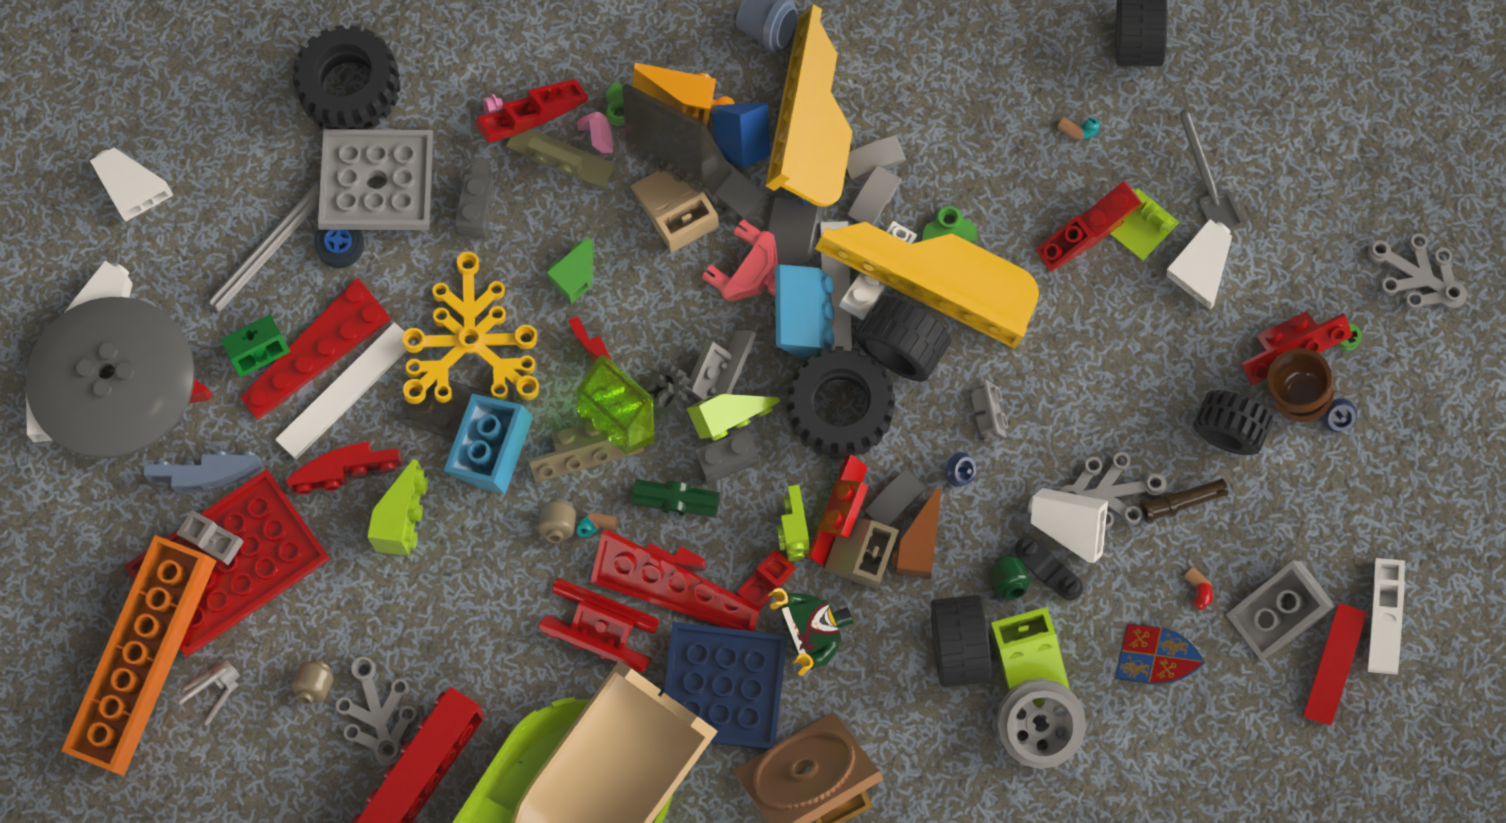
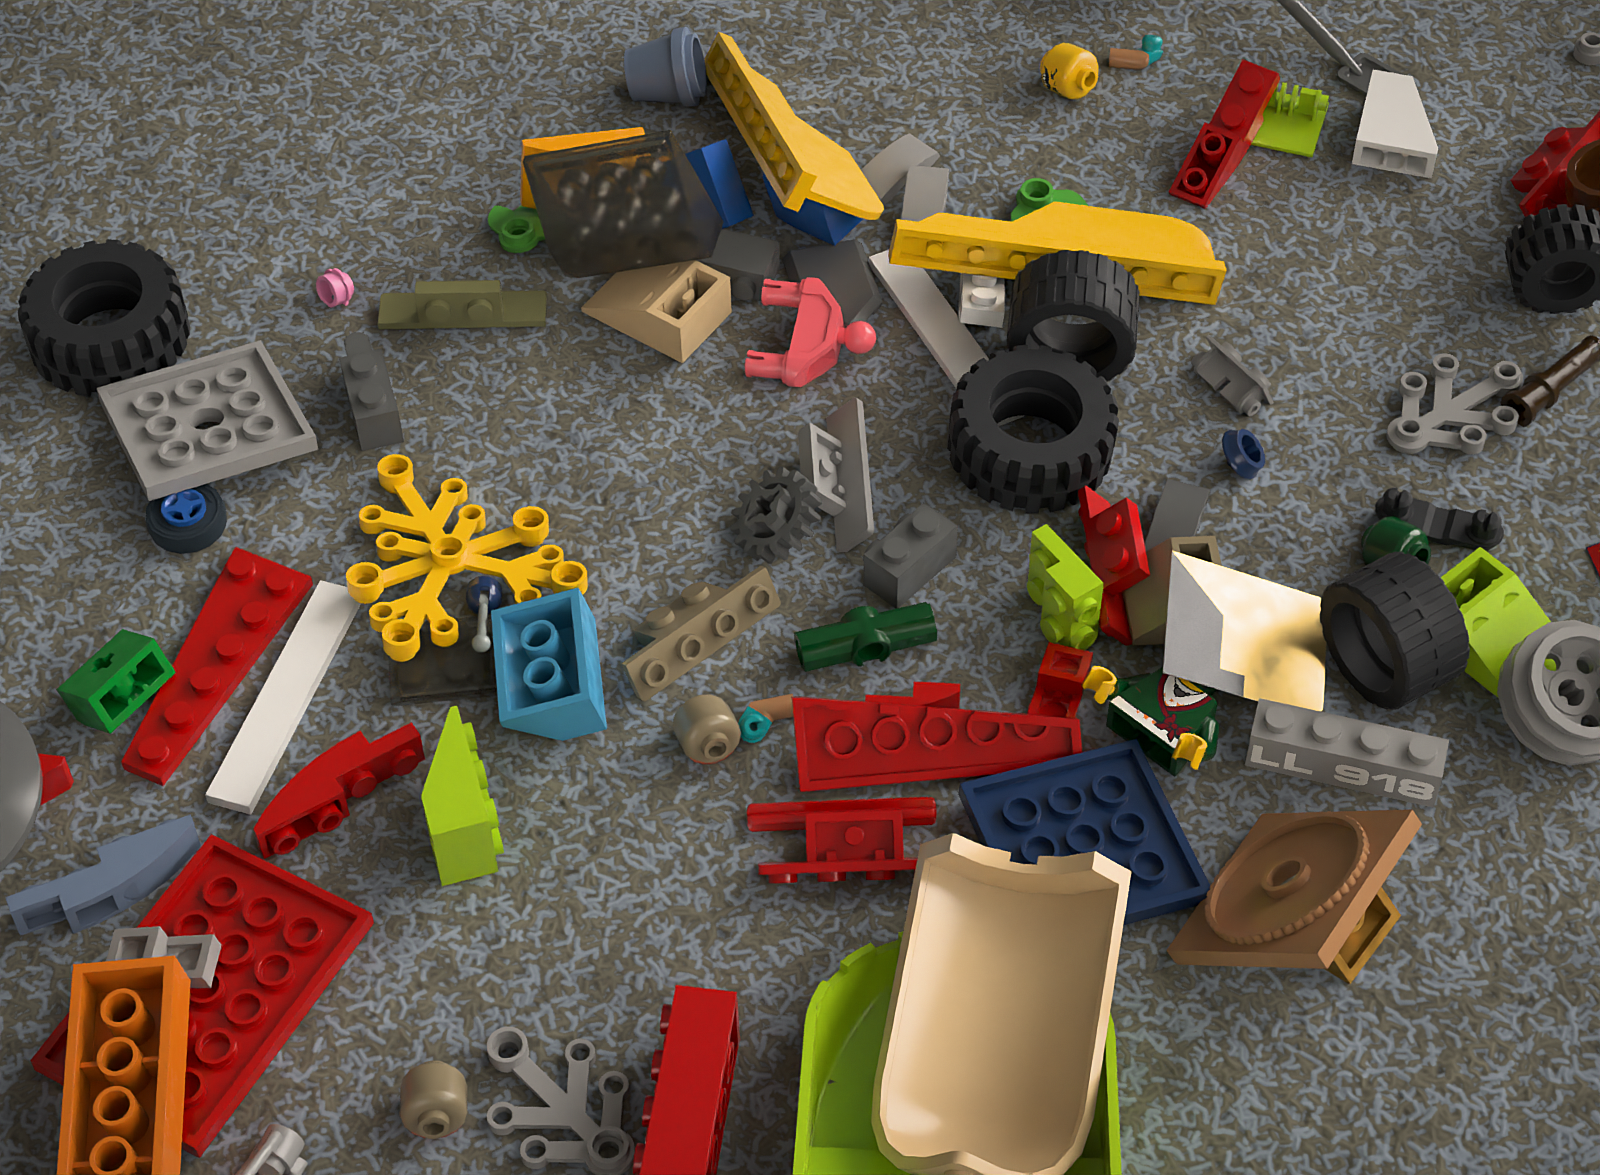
camera: 30 degrees left, 20 degrees down
(266, 249) = (73, 565): light grey axle -> none
(475, 381) = (482, 605): none -> hinge
(527, 113) = (399, 267): red slope -> none
(575, 271) = (558, 427): bright green slope -> none
(594, 346) = (639, 502): red slope -> none
(600, 131) = (492, 253): bright pink tile -> none
(616, 406) = (721, 535): clear neon green slope -> none
(722, 411) = (878, 490): slope -> none
(803, 310) = (915, 343): dark azure slope -> none
(879, 602) = (1243, 634): none -> sticker
(897, 698) = (1347, 752): none -> light grey brick
(918, 544) = (1245, 540): dark orange slope -> none
(1024, 127) = (1069, 71): none -> yellow head
(1071, 520) = (1434, 447): white slope -> none

